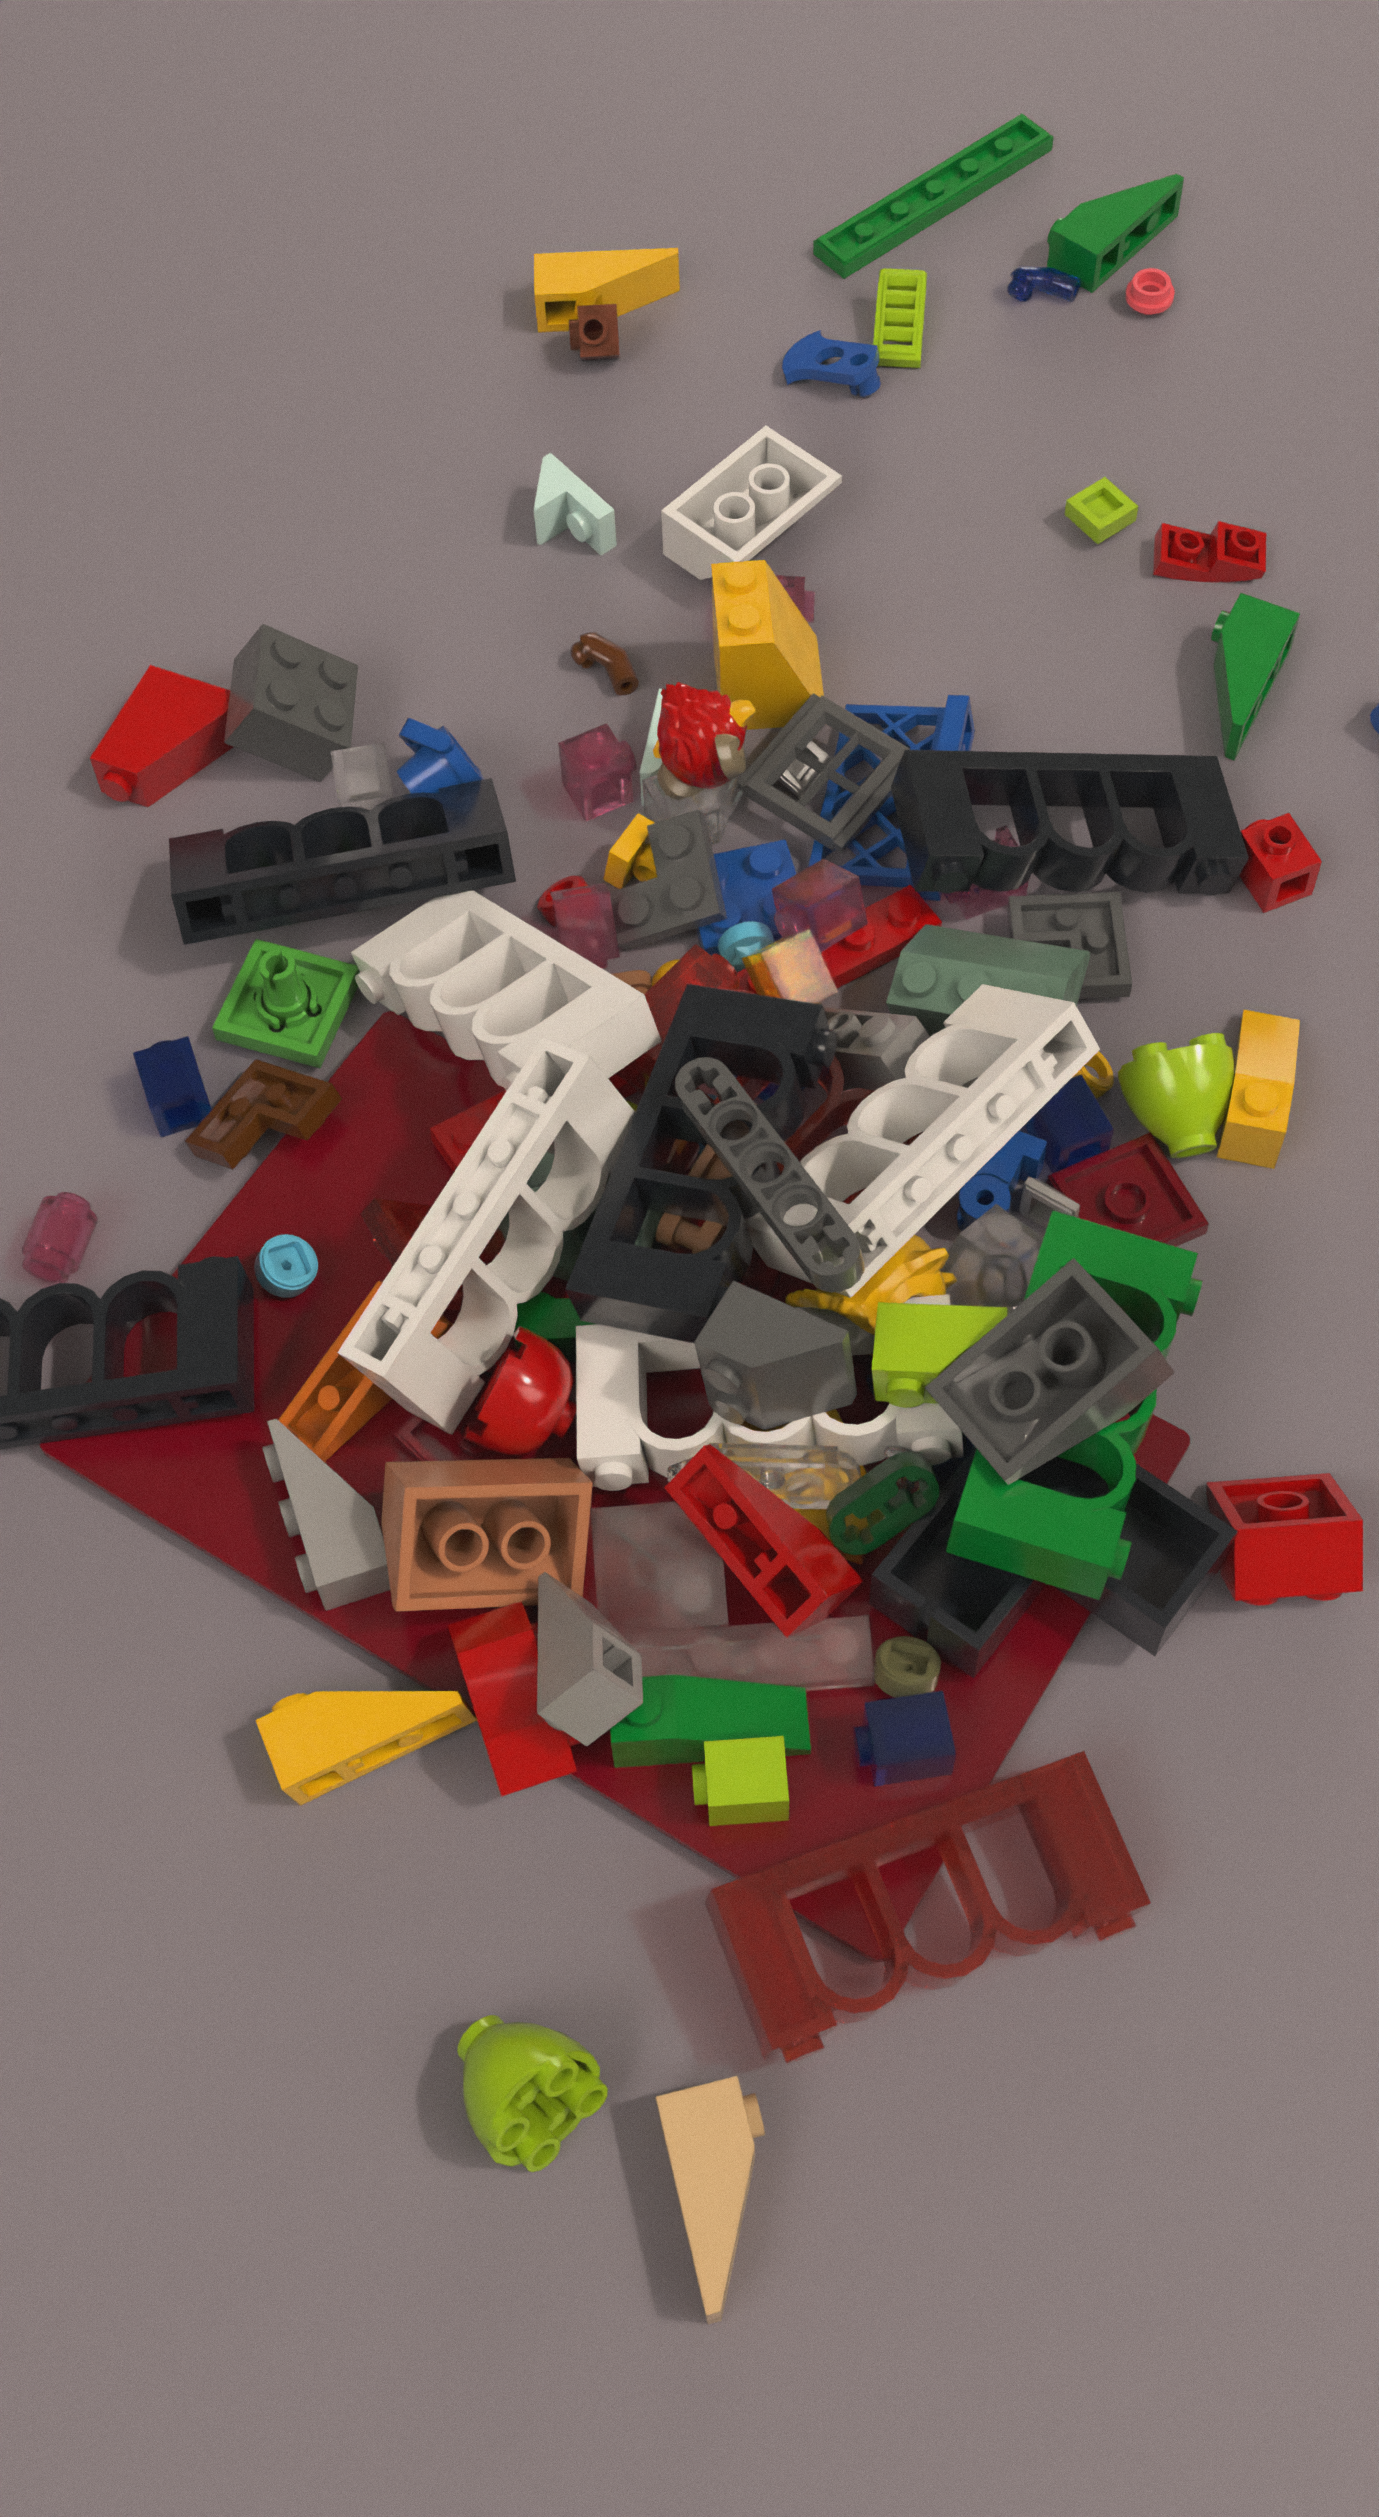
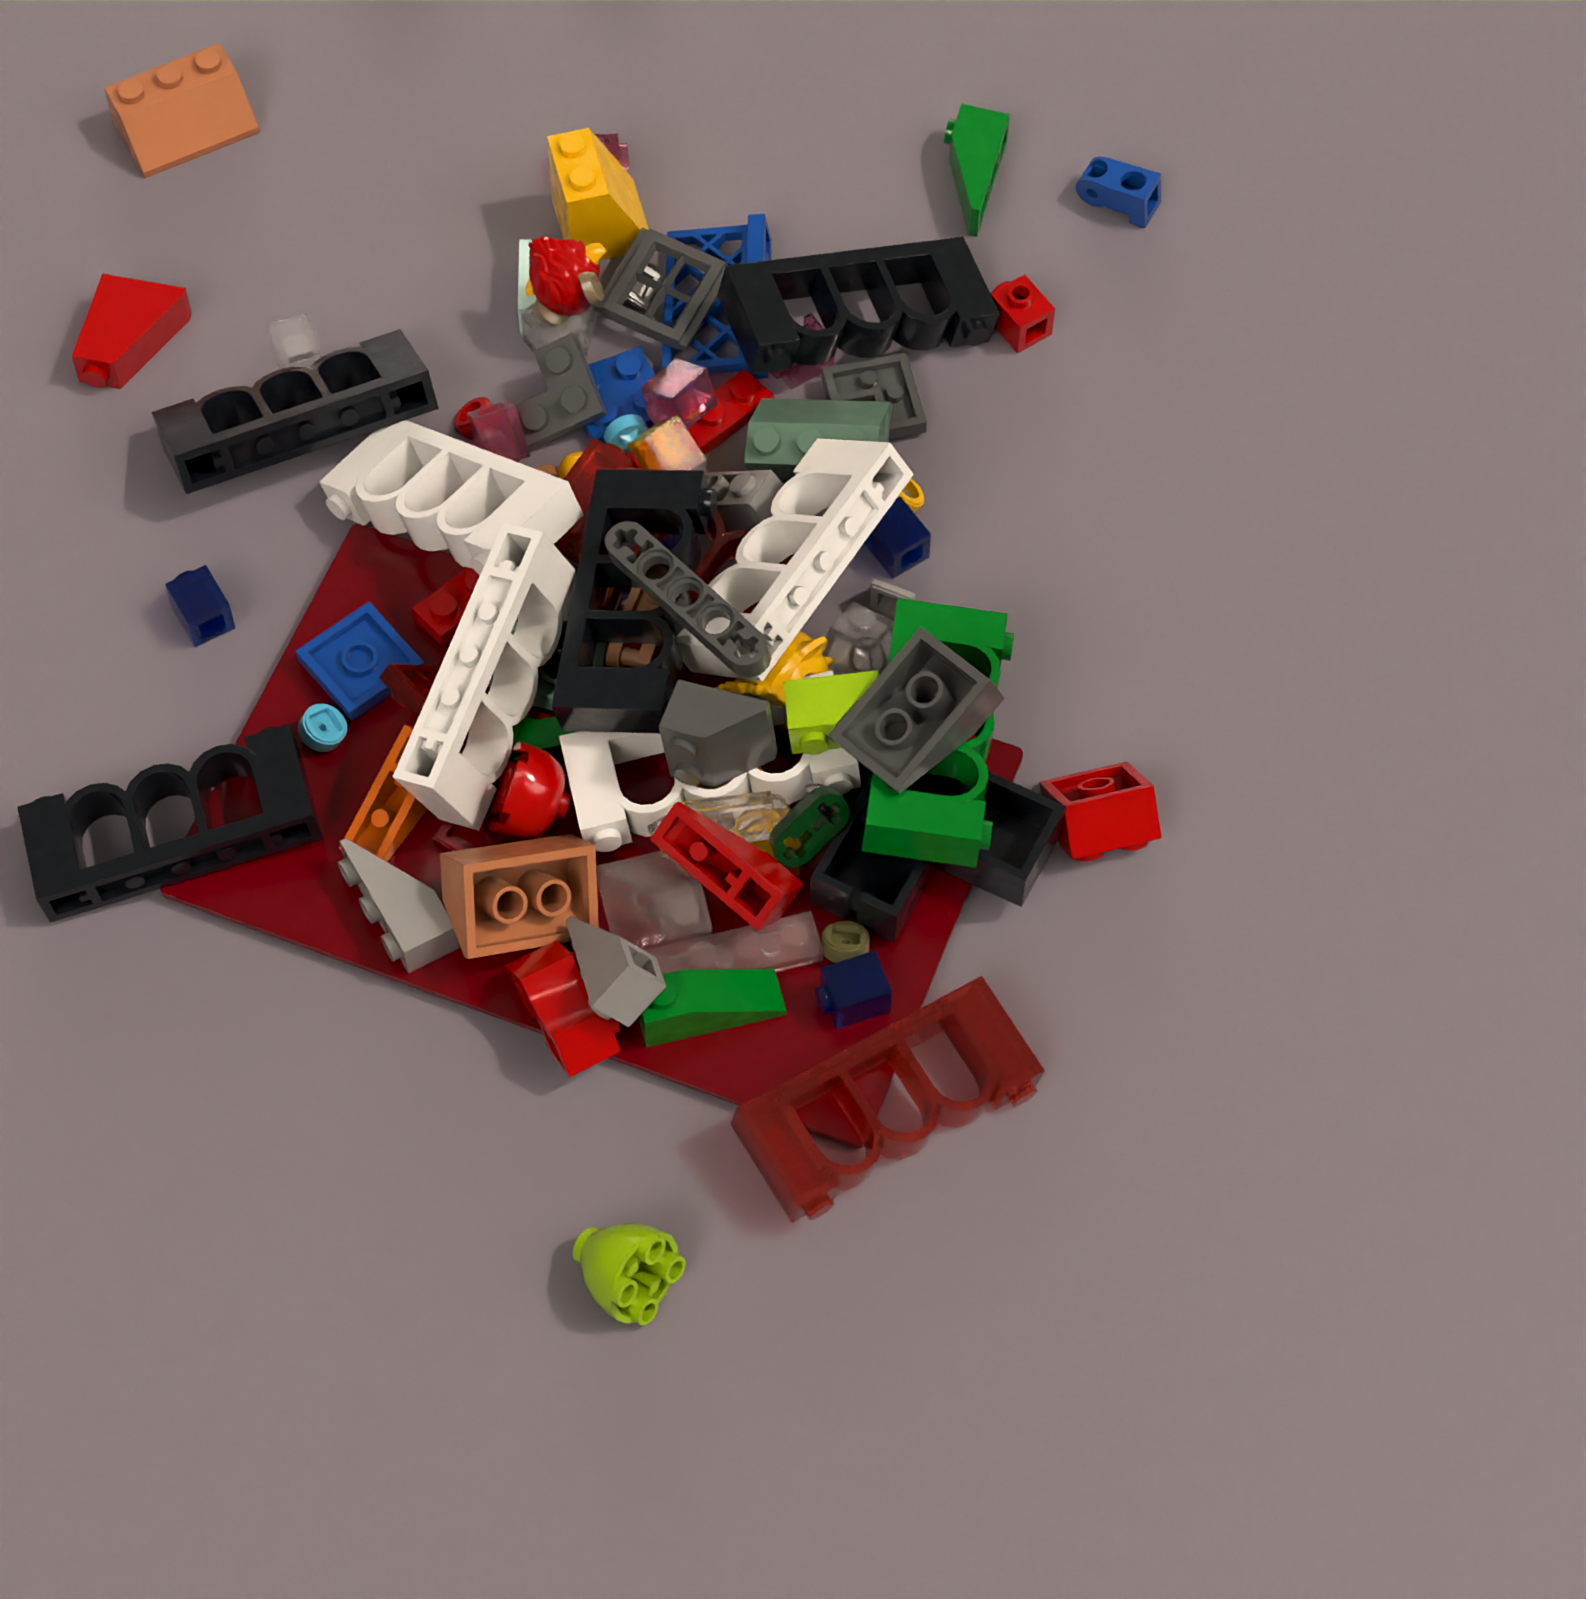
camera: 15 degrees left, 0 degrees up
(58, 1237) = (137, 733): clear pink brick -> none
(257, 1101) = (271, 606): reddish brown plate -> none
(291, 702) = (226, 289): dark grey brick -> none
(291, 987) = (275, 515): bright green plate -> none
(293, 488) = (181, 110): none -> nougat slope
(340, 1178) = (352, 658): none -> blue plate
(342, 1735) = (448, 1053): yellow slope -> none
(437, 759) = (351, 321): blue piece -> none
(569, 503) = (413, 93): light aqua slope -> none
(597, 771) = (481, 312): clear pink brick -> none
(611, 656) = (473, 217): reddish brown arm -> none
(631, 855) = (524, 375): yellow tile -> none
(712, 2164) = (765, 1290): tan slope -> none
(743, 1781) = (743, 1038): lime brick -> none
(744, 503) = (558, 80): white slope -> none
(997, 1180) = (851, 583): blue leg -> none
(1101, 510) = (841, 47): lime plate -> none
(1133, 1192) = (953, 577): dark red tile -> none
(1181, 1091) = (976, 498): lime piece -> none
(1223, 556) = (941, 73): red slope -> none
(1260, 1089) = (1034, 488): yellow slope -> none

